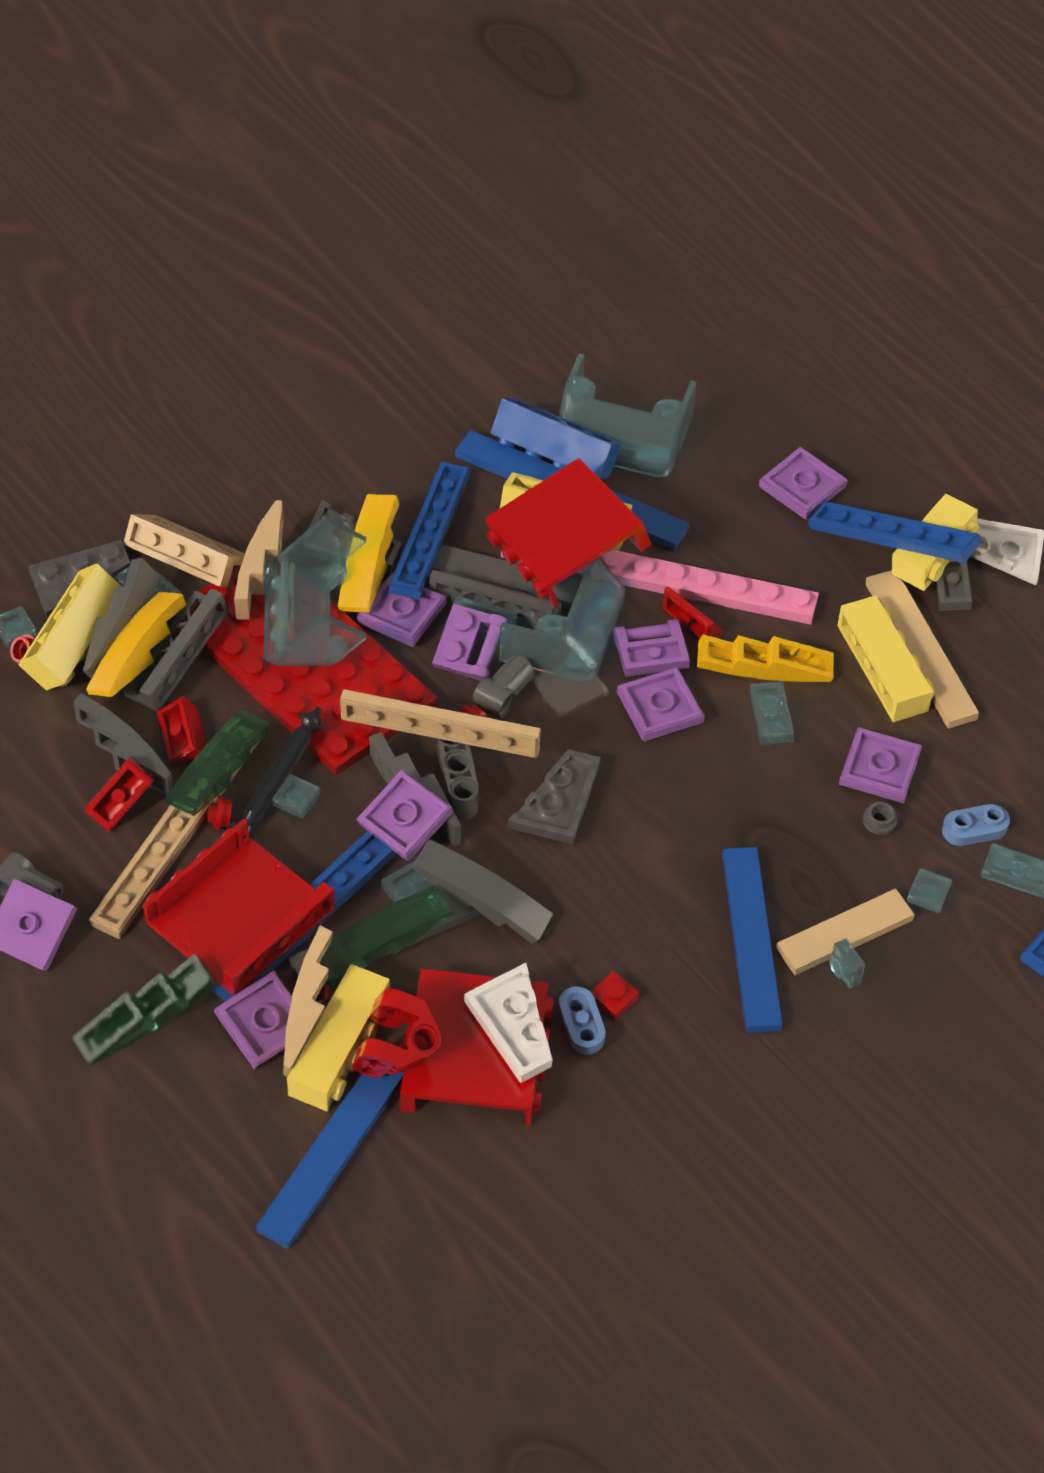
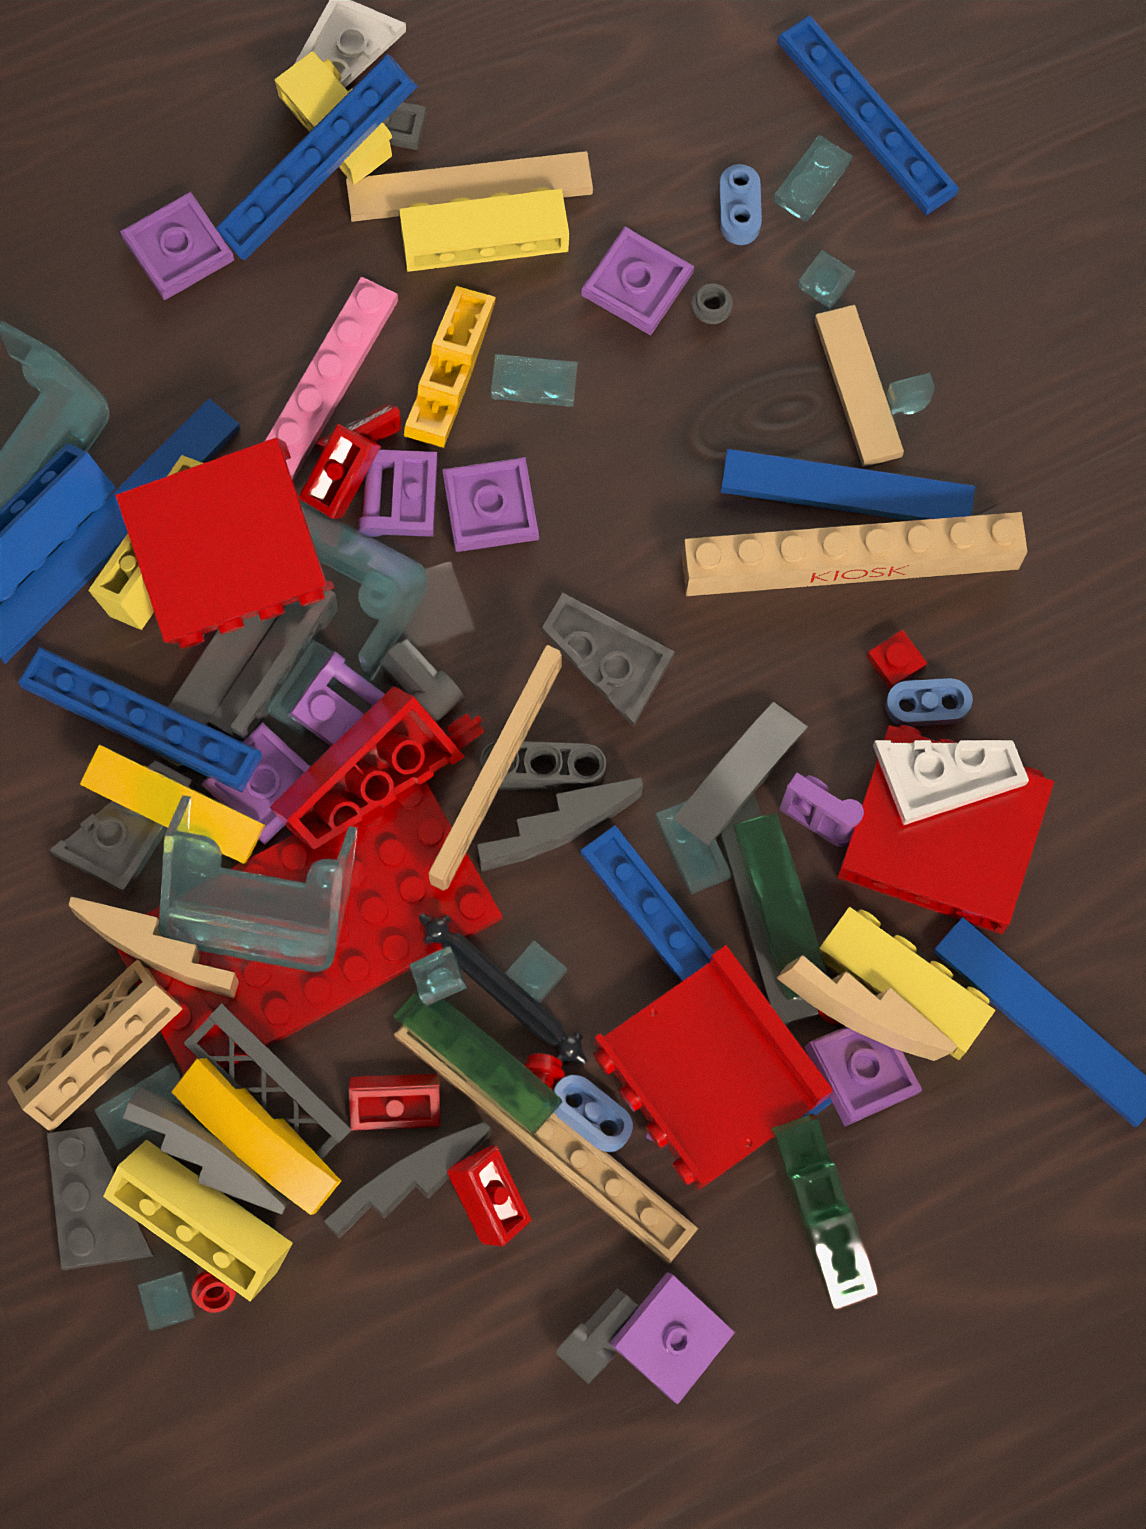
camera: 80 degrees left, 20 degrees up
(189, 846) = (594, 1111): none -> medium blue plate
(272, 721) = (437, 976): none -> clear light blue plate
(391, 1010) = (964, 887): red piece -> none
(405, 815) = (614, 841): medium lavender plate -> none
(434, 662) = (366, 769): none -> red wedge
(466, 939) = (811, 805): none -> medium lavender plate
(651, 603) = (339, 472): none -> red slope
(693, 947) = (853, 554): none -> tan brick

